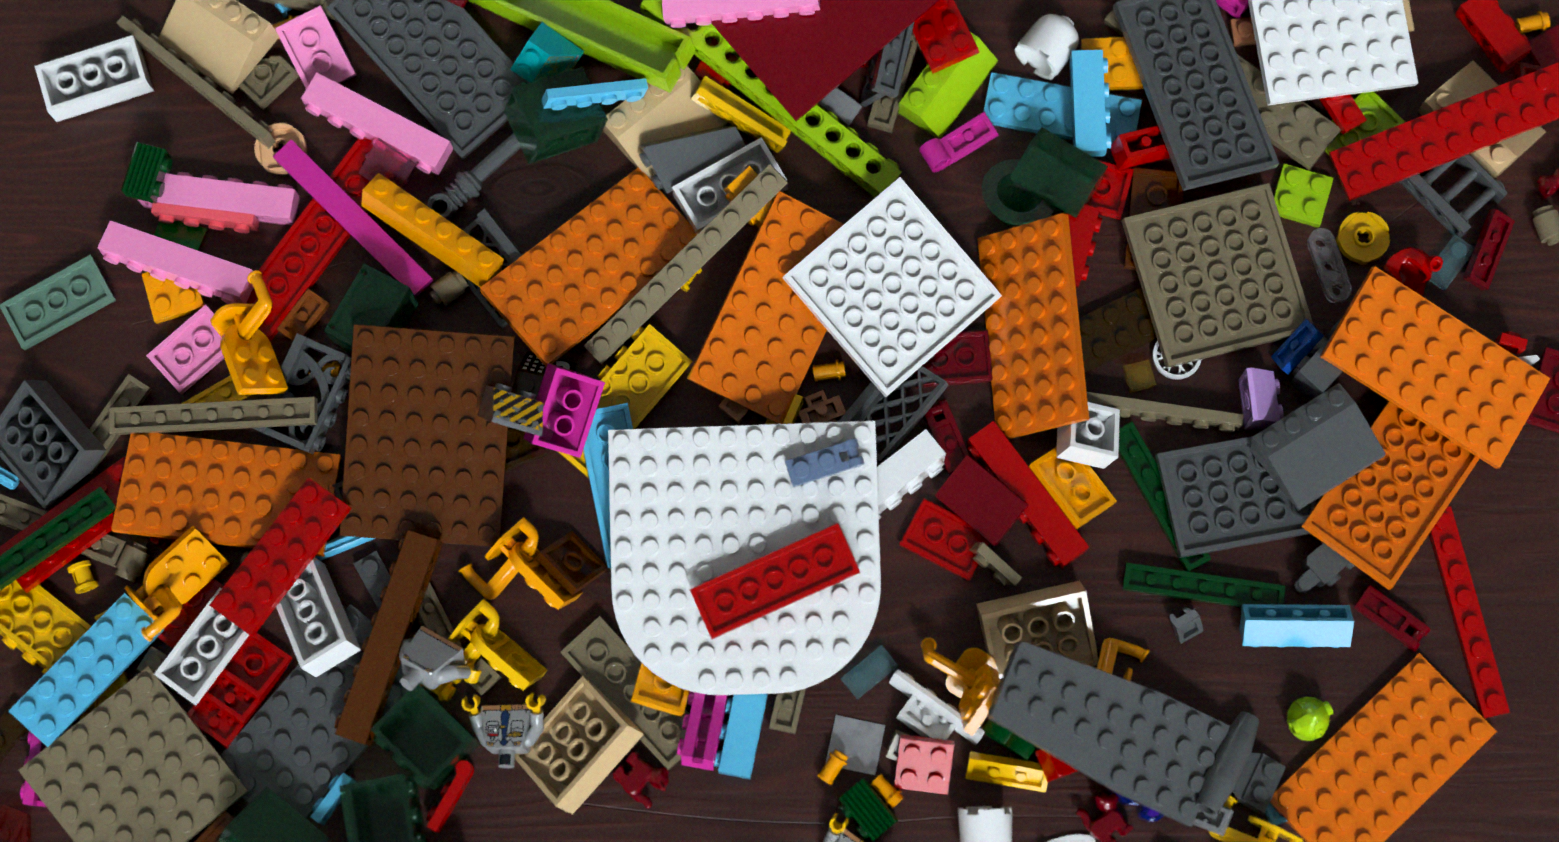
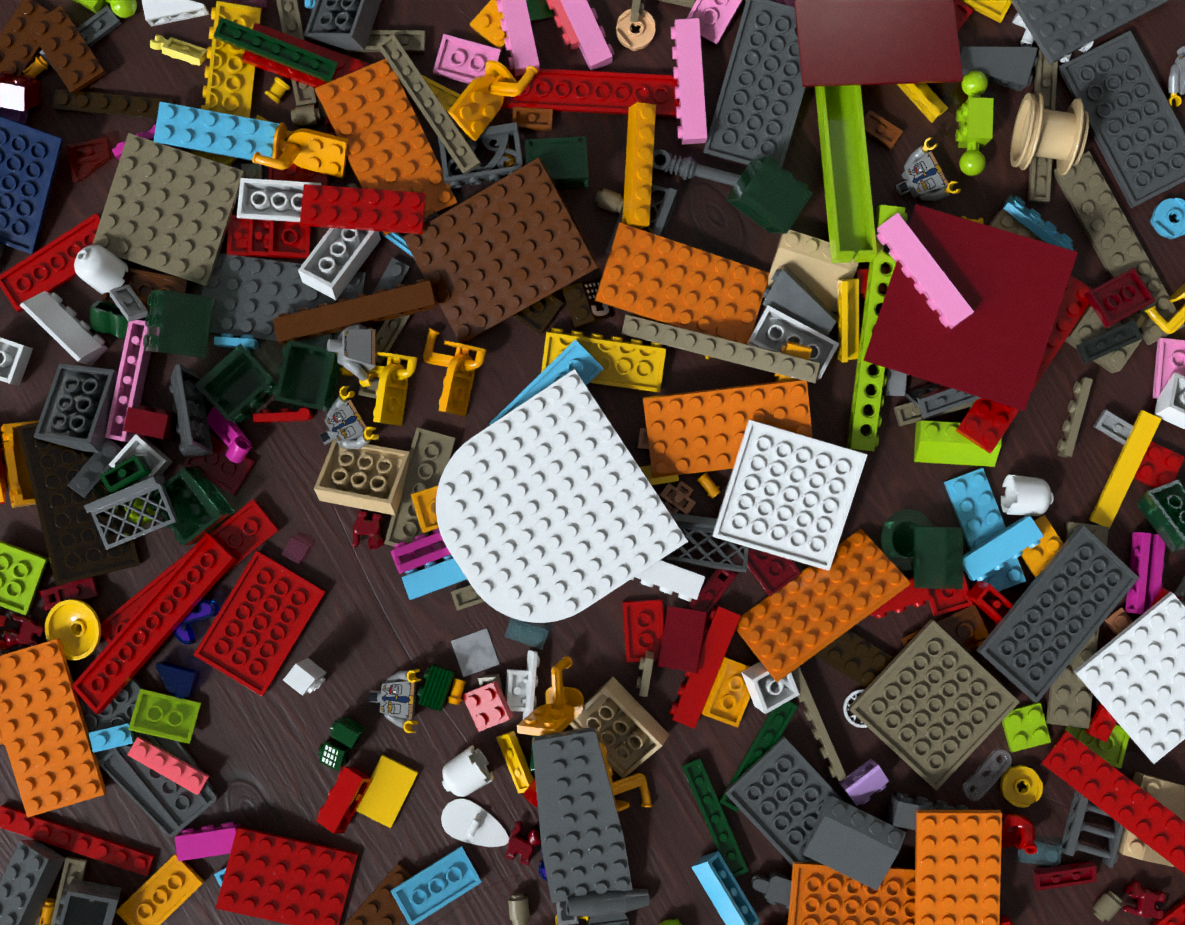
camera: 55 degrees right, 10 degrees up
(352, 217) = (616, 107): dark pink tile -> none
(387, 162) = (667, 106): clear pink piece -> none
(512, 409) = (547, 298): slope -> none
(546, 55) = (806, 163): teal slope -> none
(567, 409) = (570, 331): dark pink slope -> none
(571, 562) = (477, 398): reddish brown plate -> none
(594, 93) = (792, 208): medium azure plate -> none
(775, 581) = (540, 541): red plate -> none
(823, 463) = (637, 525): sand blue plate -> none
(833, 766) = (451, 647): light orange pin -> none
(958, 143) = (919, 476): dark pink plate -> none
(1139, 376) = (832, 691): clear yellow plate -> none
(1186, 625) = (683, 822): dark grey tile -> none
(1297, 346) = (916, 786): blue plate -> none

